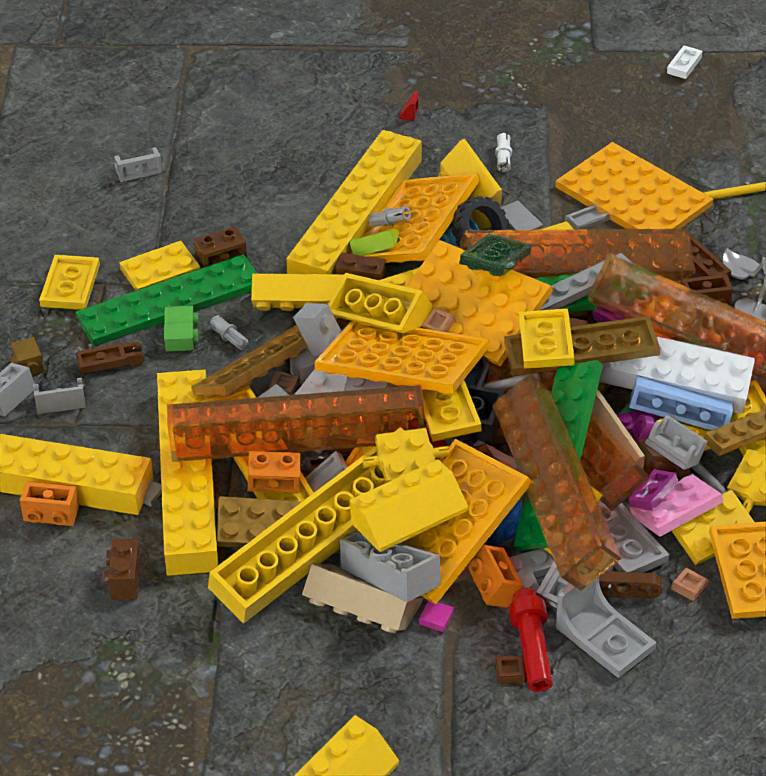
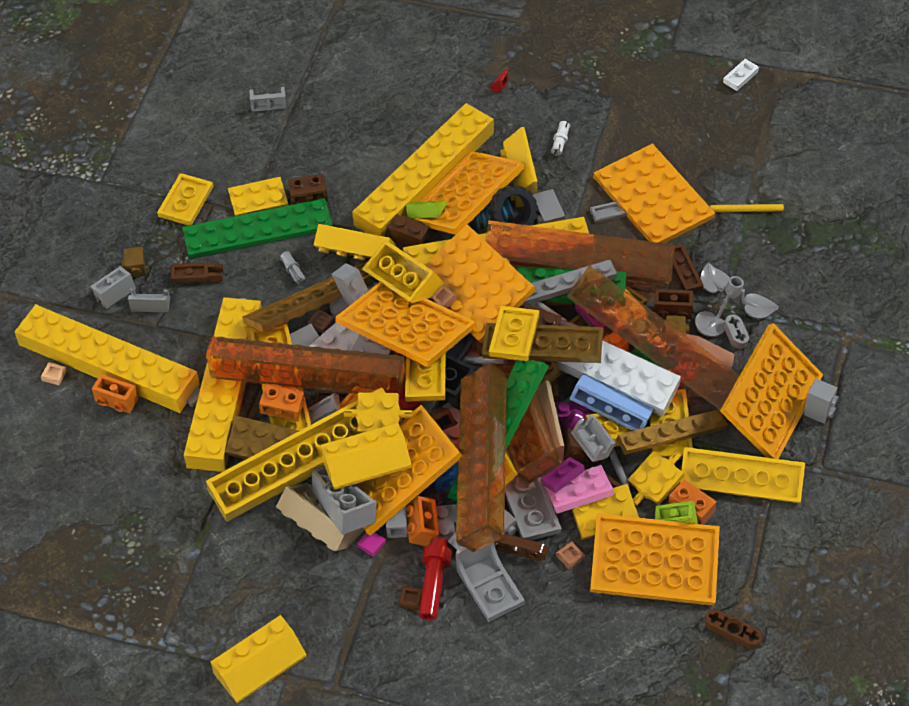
camera: 15 degrees right, 10 degrees up
(124, 569) = (154, 458): reddish brown brick -> none
(179, 328) = (255, 257): bright green brick -> none
(389, 216) = (444, 187): light grey axle -> none
(464, 589) = (397, 525): none -> light grey brick
(495, 254) = (500, 249): clear green plate -> none

